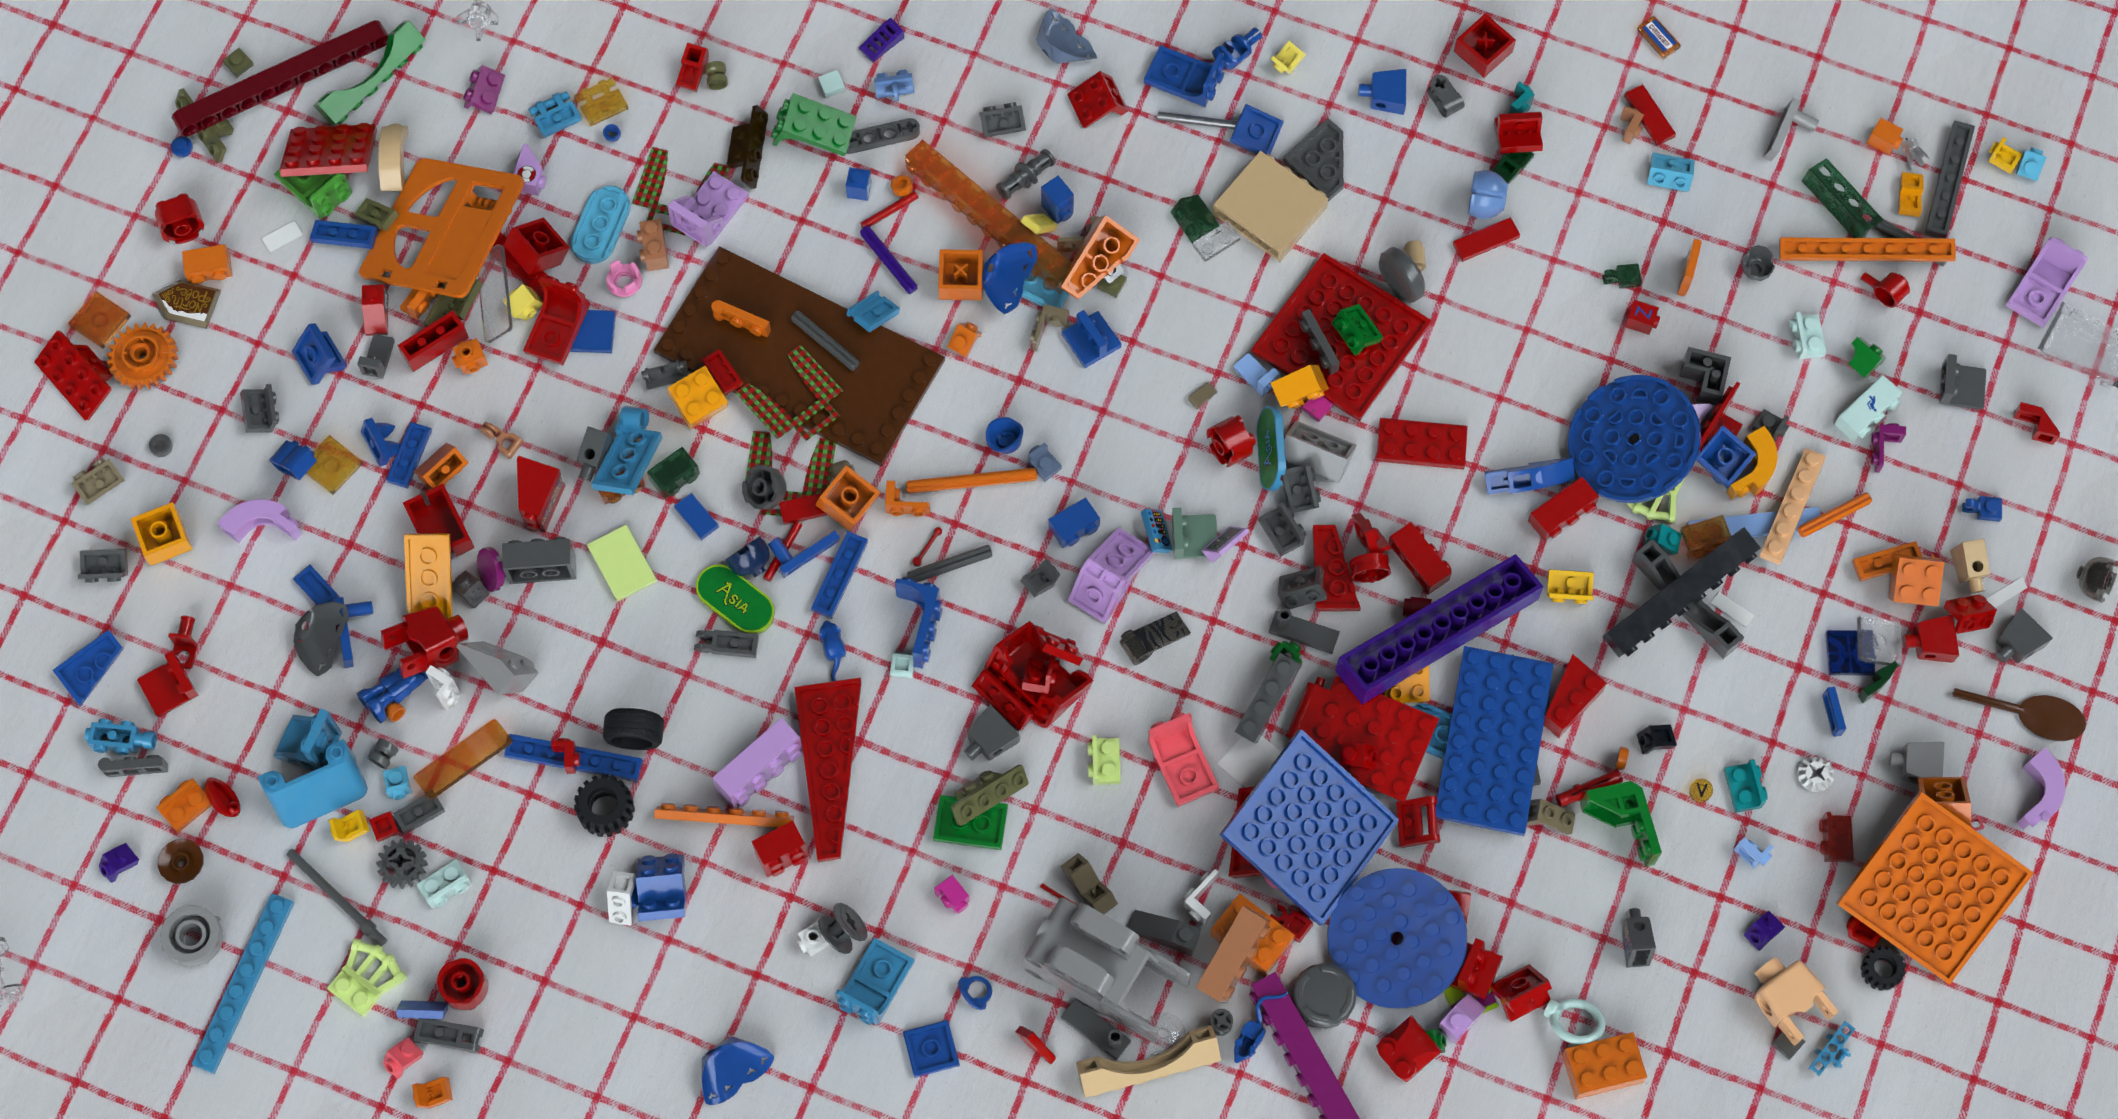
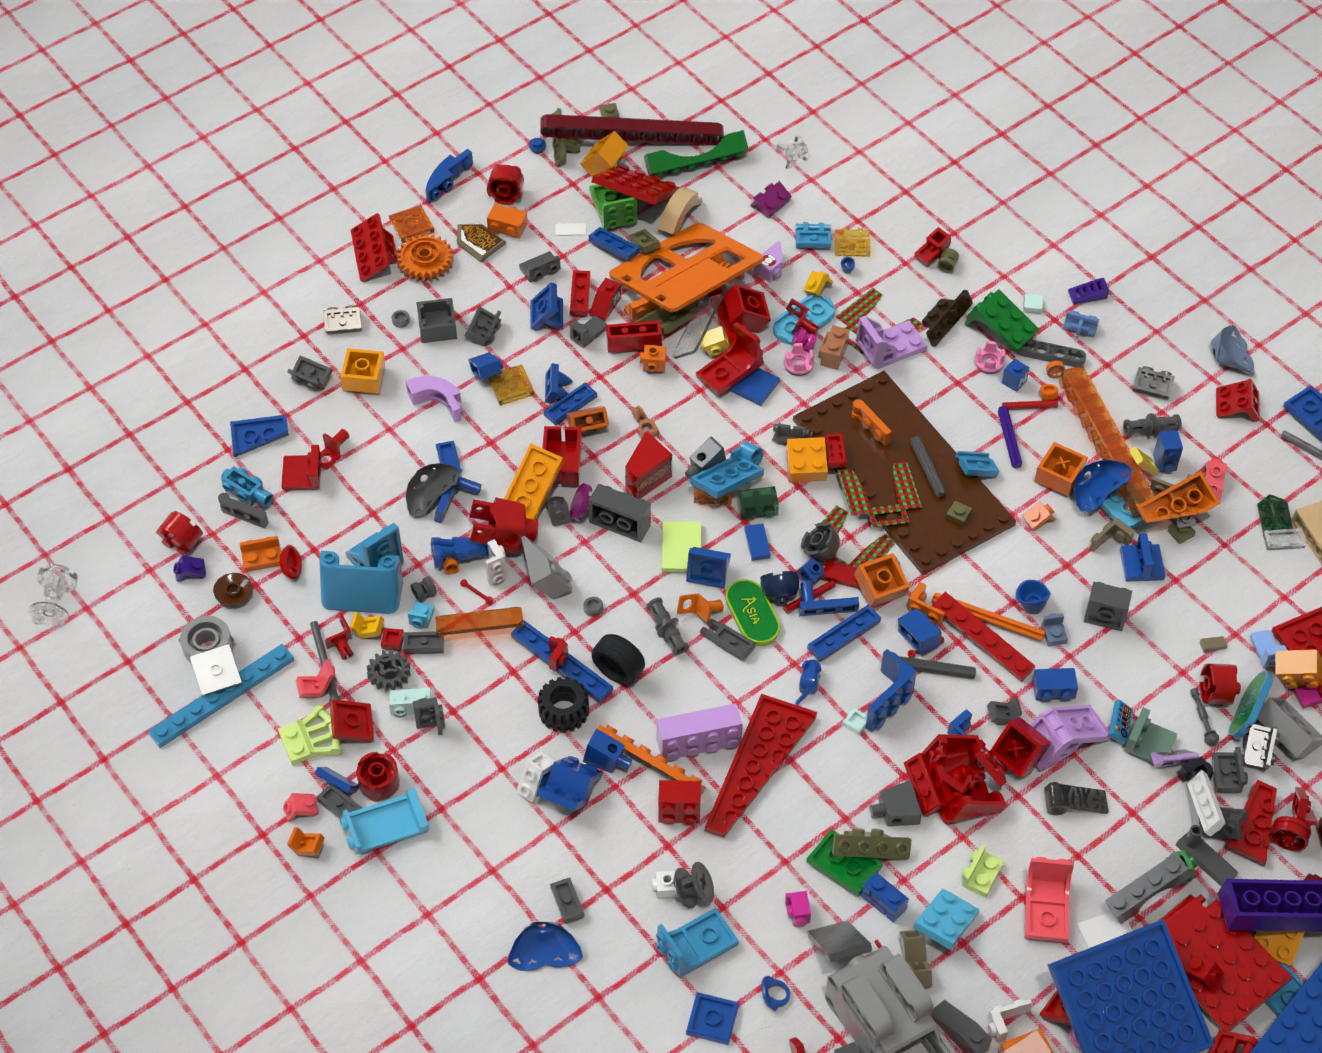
camera: 30 degrees right, 15 degrees down
(83, 829) = (179, 532): none -> red brick
(99, 241) = (445, 172): none -> blue slope
(204, 429) = (436, 320): none -> dark grey container
(224, 963) = (215, 669): none -> white plate
(269, 127) = (604, 154): none -> light orange brick
(277, 302) = (540, 266): none -> dark grey bracket
(331, 857) = (340, 639): none -> red bracket
(337, 919) = (316, 685): none -> coral bracket
(341, 314) = (580, 293): none -> red plate
(398, 940) = (351, 721): none -> red plate
(457, 727) = (489, 600): none -> red hinge
(474, 889) = (429, 714): none -> dark grey bracket
(499, 1029) = (384, 823): none -> medium azure panel
(569, 678) = (593, 606): none -> flat silver tile
(591, 174) = (816, 282): none -> yellow bracket
(604, 232) = (803, 322): none -> red bracket
(613, 252) = (806, 339): none -> dark pink wheel
(659, 663) = (666, 626): none -> dark grey piece
(663, 573) = (707, 567): none -> blue bracket
(670, 836) = (606, 752): none -> blue torso
(681, 622) = (700, 606): none -> orange bracket
(726, 1008) = (567, 900): none -> dark grey plate
(770, 524) = (810, 571): none -> blue plate
(818, 166) = (990, 352): none -> bright pink piece
(883, 378) = (958, 513): none -> olive plate
(895, 155) = (1054, 369): none -> orange tile
(914, 534) = (919, 631): none -> blue brick
(979, 506) = (984, 637): none -> red plate
(1005, 617) = (960, 724): none -> blue bracket
(1012, 911) = (839, 941): none -> dark grey tile
(1028, 838) = (884, 897): none -> blue brick
(1077, 613) = (1020, 747): none -> red brick
(1084, 410) = (1108, 606): none -> dark grey container
(1097, 829) = (946, 918): none -> medium azure plate
(1116, 204) = (1216, 475): none -> coral bracket
(1249, 501) = (1211, 737): none -> dark grey piece
(1250, 545) = (1192, 768): none -> black bracket
(1279, 579) = (1206, 803): none -> white plate

